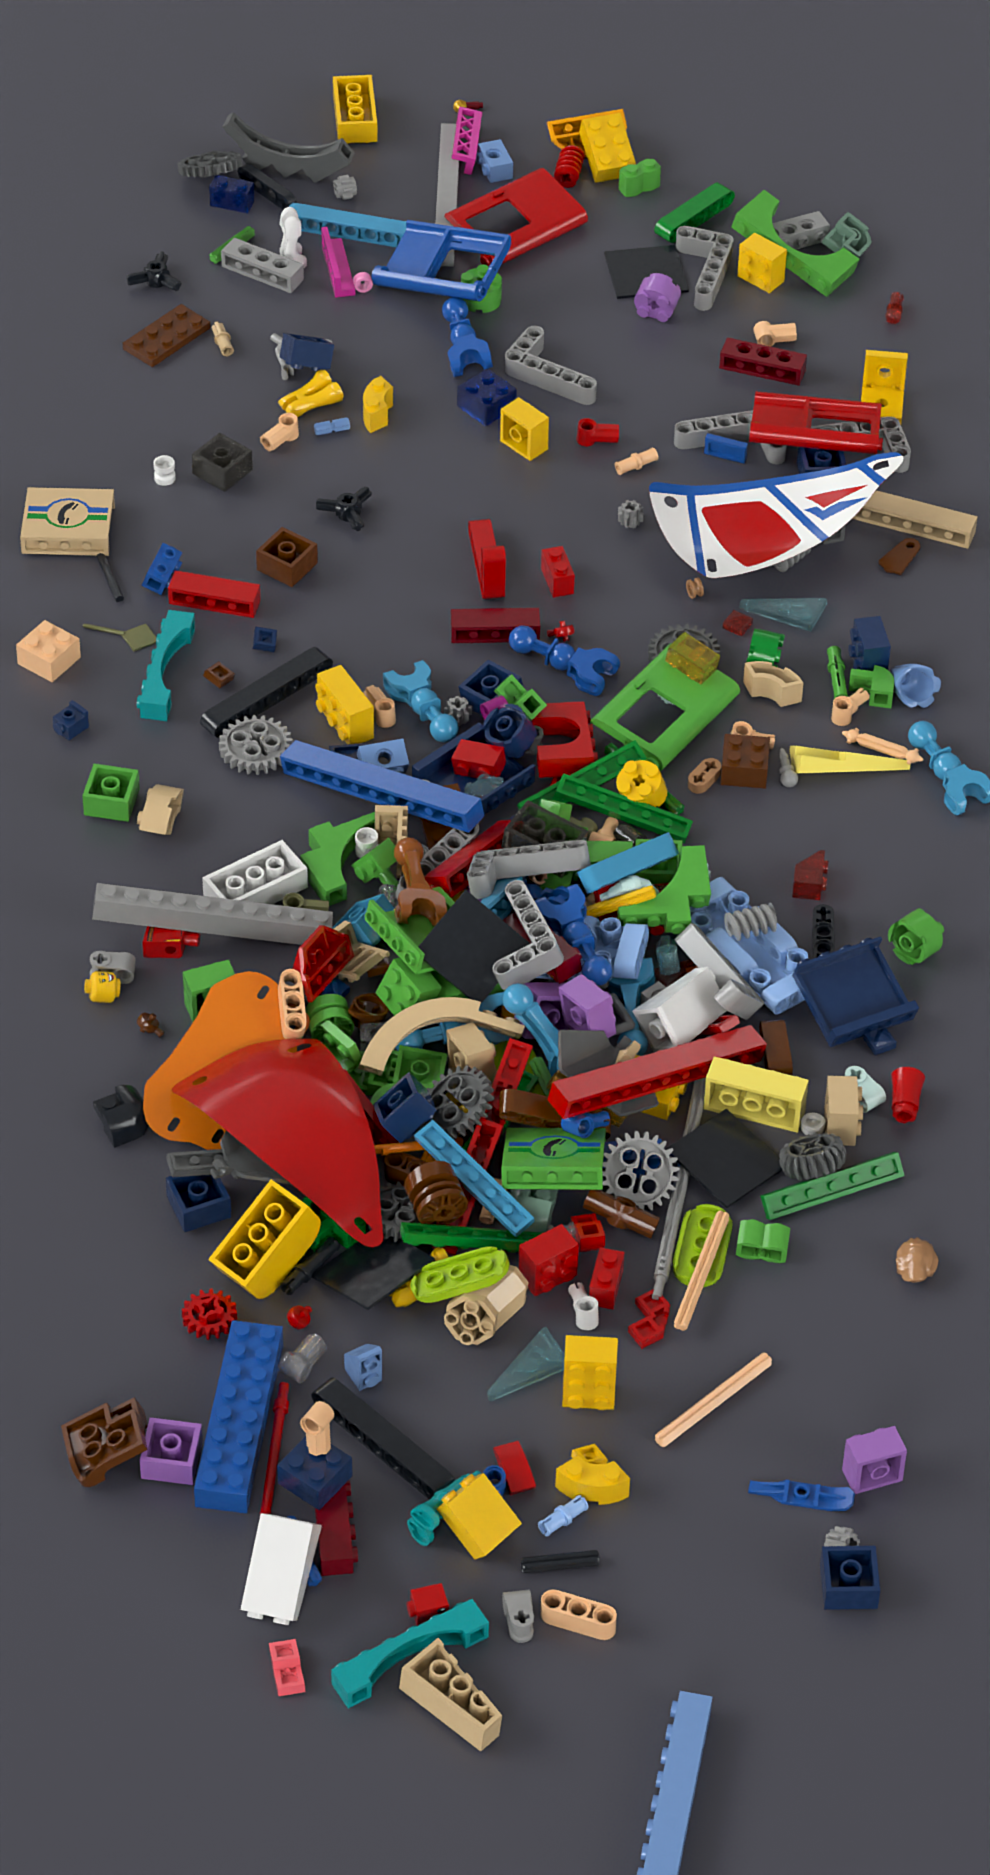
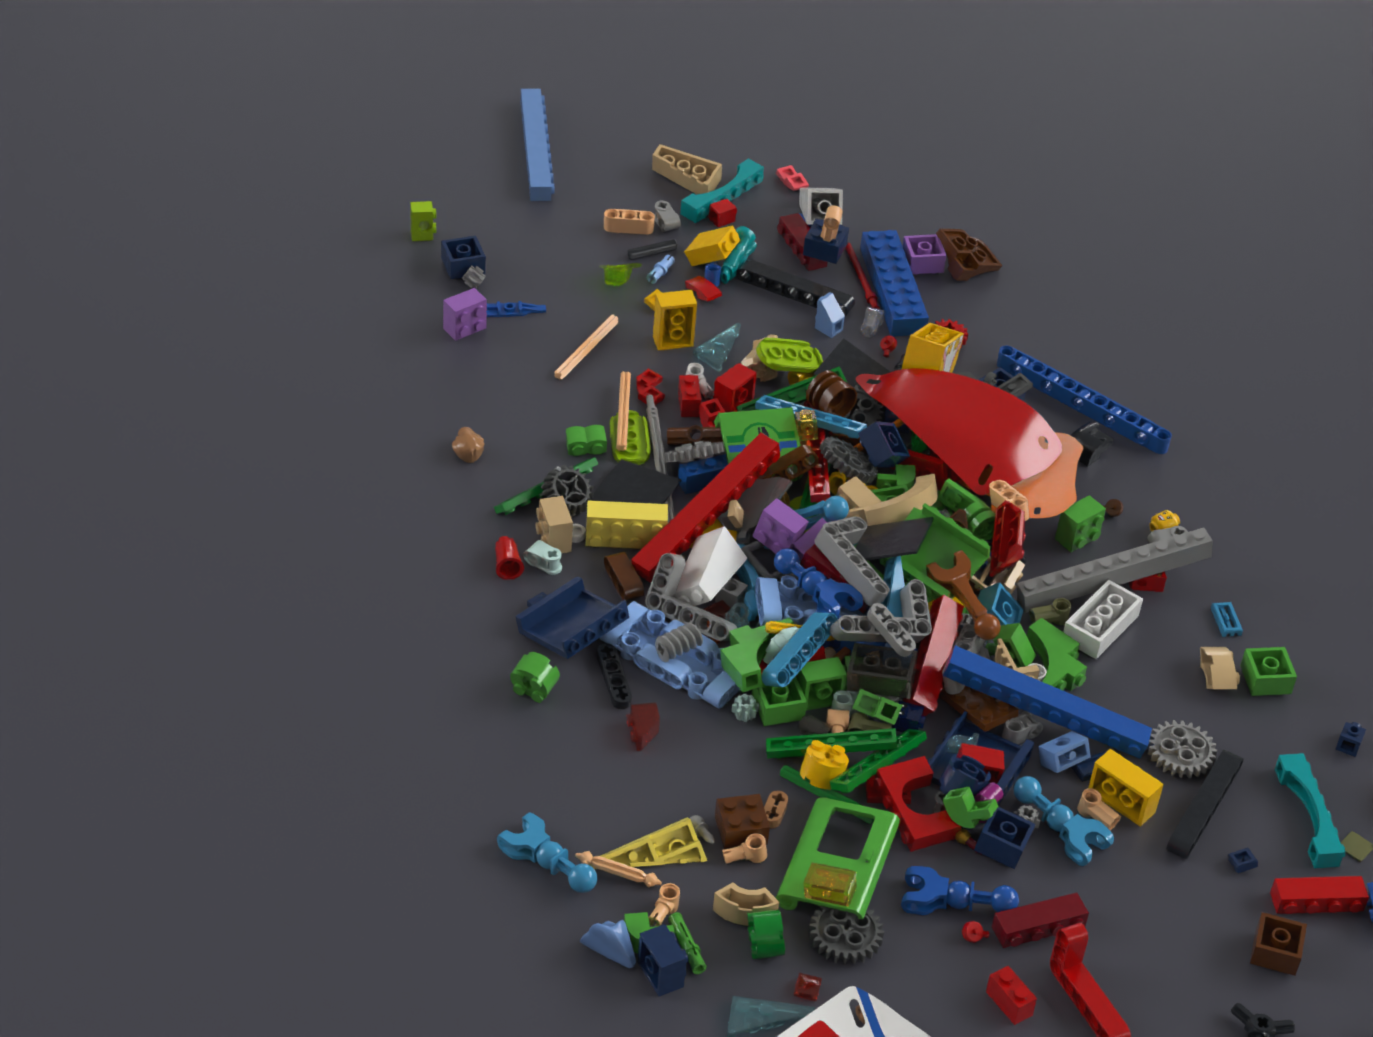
camera: 160 degrees right, 5 degrees down
(91, 1179) = (1085, 400): none -> blue beam
(119, 860) = (1222, 619): none -> dark azure tile
(219, 675) = (1258, 814): reddish brown tile -> none
(490, 1150) = (806, 425): none -> clear yellow brick
(522, 827) = (891, 638): none -> light grey beam
(594, 1482) = (643, 282): yellow brick -> none
(626, 1508) = (618, 273): none -> clear neon green piece
(896, 1654) = (422, 221): none -> lime brick

